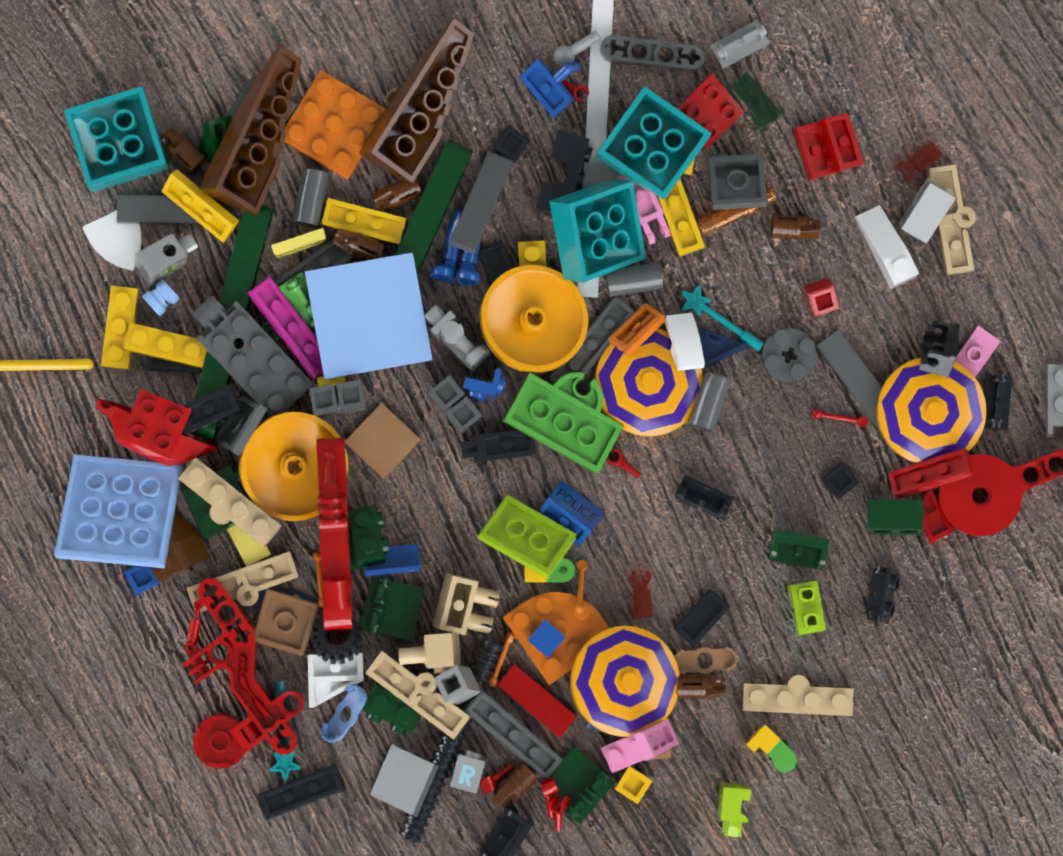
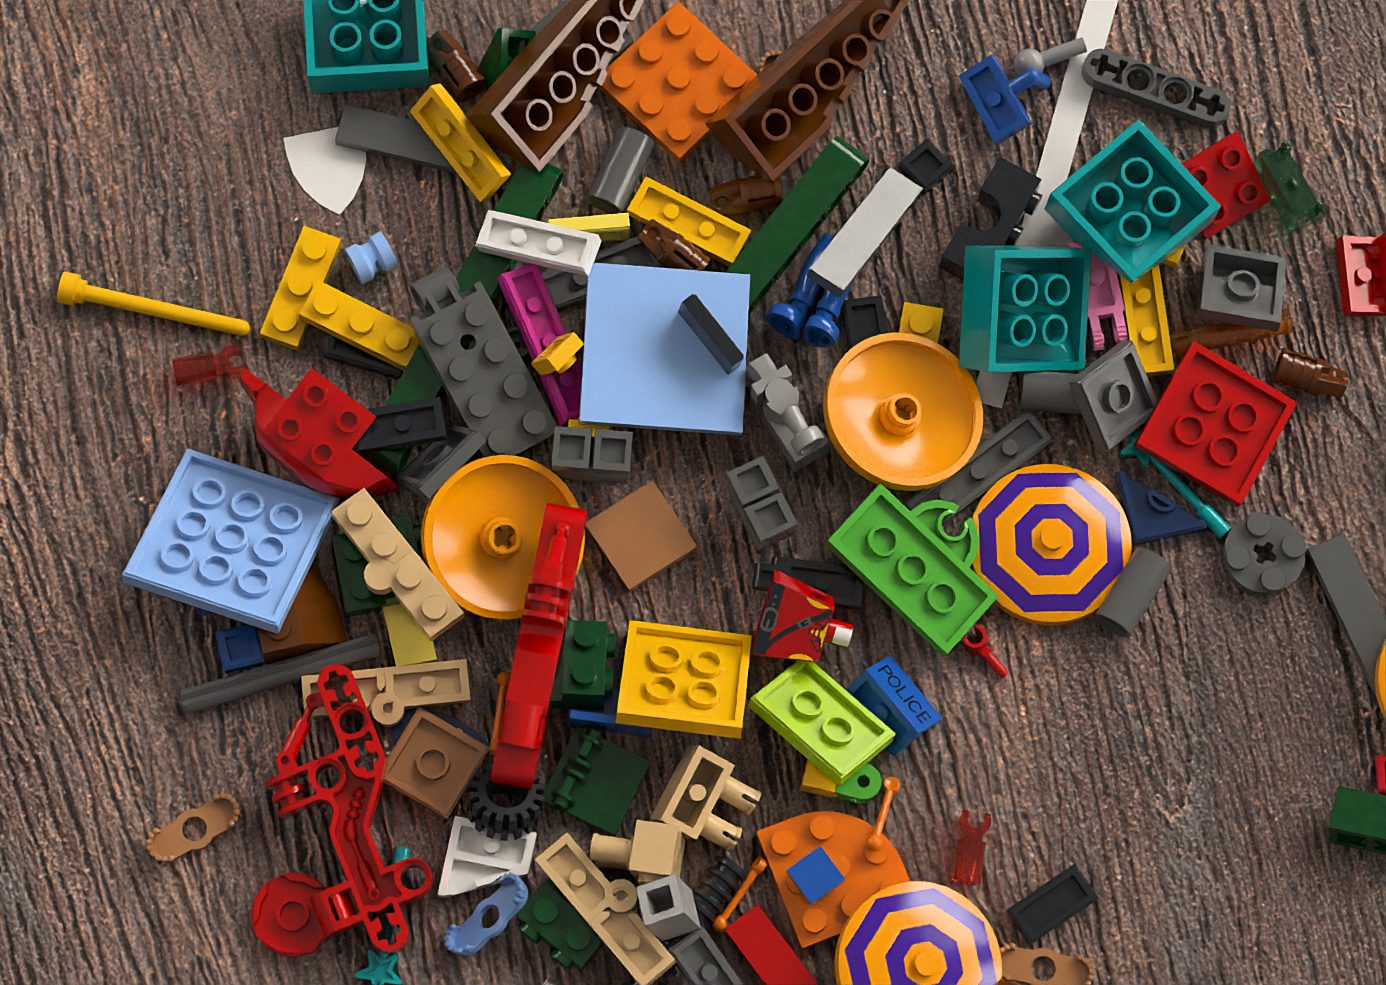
camera: 10 degrees right, 10 degrees down
(71, 396) = (206, 366): none -> clear red bar
(131, 714) = (170, 843): none -> medium nougat piece
(155, 265) = (388, 202): light grey torso -> none
(172, 587) = (278, 673): none -> dark grey axle
(268, 265) = (538, 243): none -> white tile
(297, 294) = (569, 297): bright green hinge -> none
(300, 337) = (558, 355): none -> yellow plate
(396, 301) = (711, 333): none -> black tile
(433, 532) = (684, 679): none -> yellow plate
(479, 390) = (808, 492): blue bracket -> none
(497, 475) = (797, 621): none -> red torso
(573, 89) = (1032, 111): red hand -> none
(640, 331) = (1053, 466): orange tile -> none
(669, 275) = (1114, 395): none -> dark grey tile
(685, 340) = (1118, 494): white slope -> none
(699, 494) = (1095, 726): black hinge -> none
(739, 276) = (1215, 424): none -> red plate
(740, 44) = (1285, 104): light grey hinge -> none
(798, 549) = (1219, 836): dark green hinge -> none
(807, 607) = (1214, 925): lime hips -> none
(821, 297) = (1328, 484): red slope -> none
(839, 480) = (1301, 752): black tile -> none
(861, 421) = (1350, 675): red hinge -> none
(883, 603) = (1329, 949): black hinge -> none

